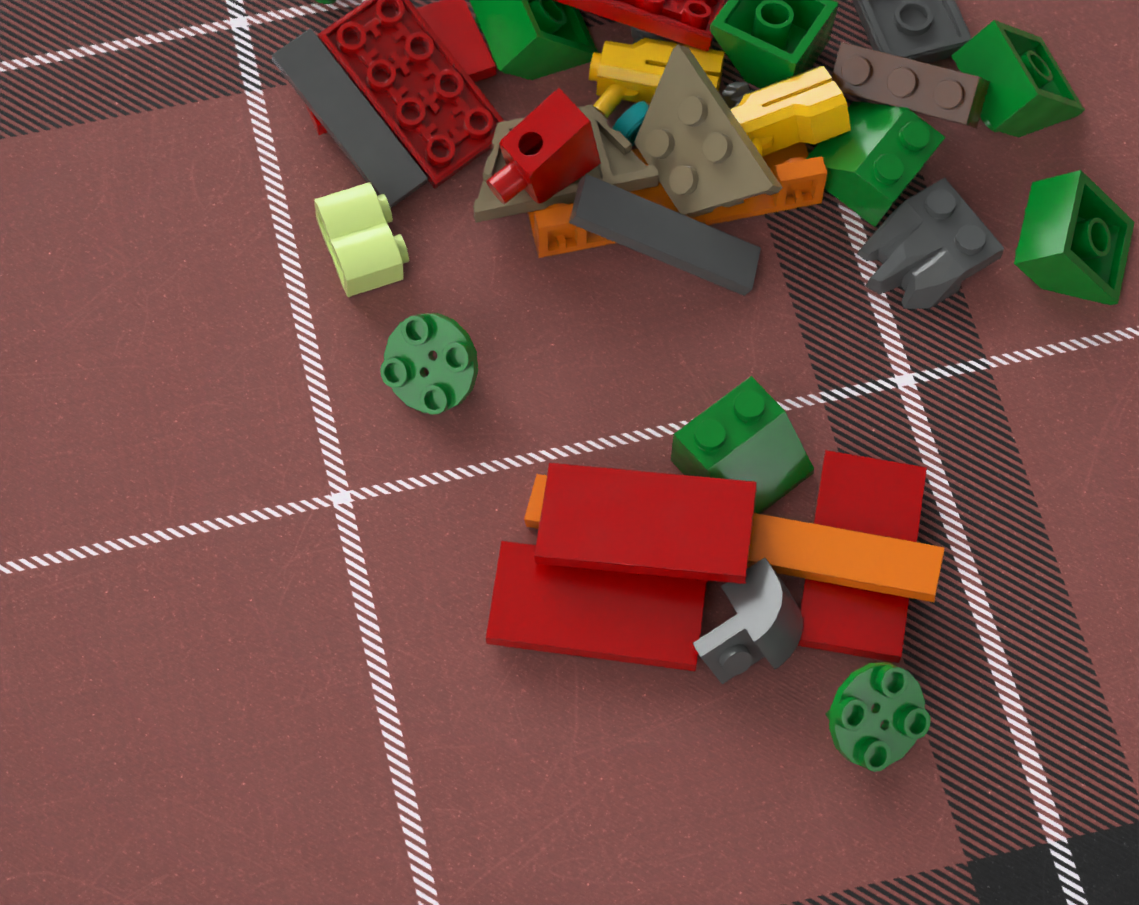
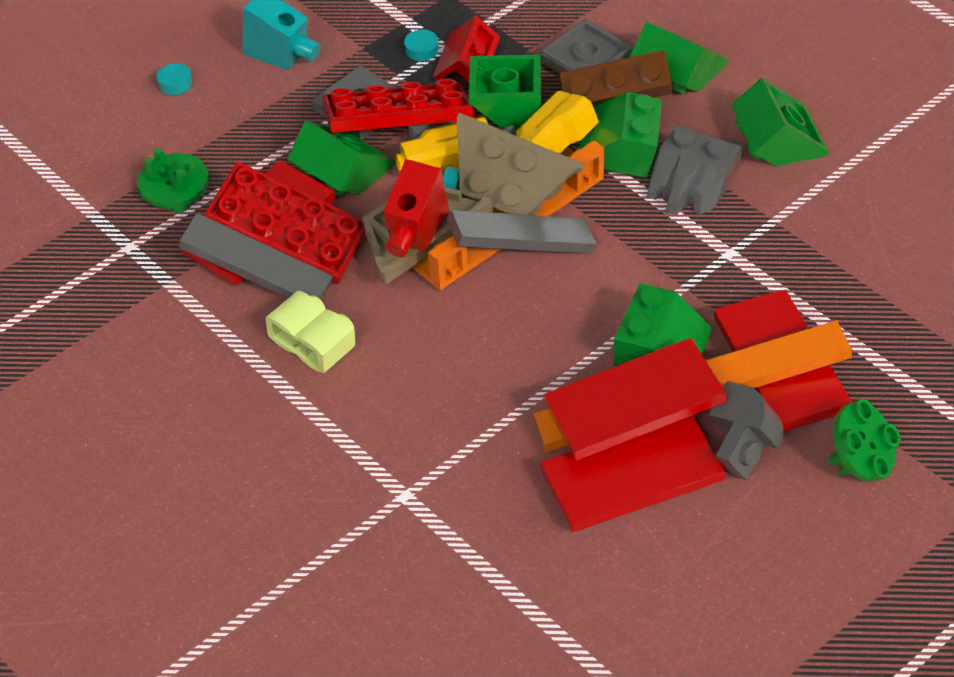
camera: 25 degrees left, 15 degrees down
(411, 351) = (396, 378): green plate -> none

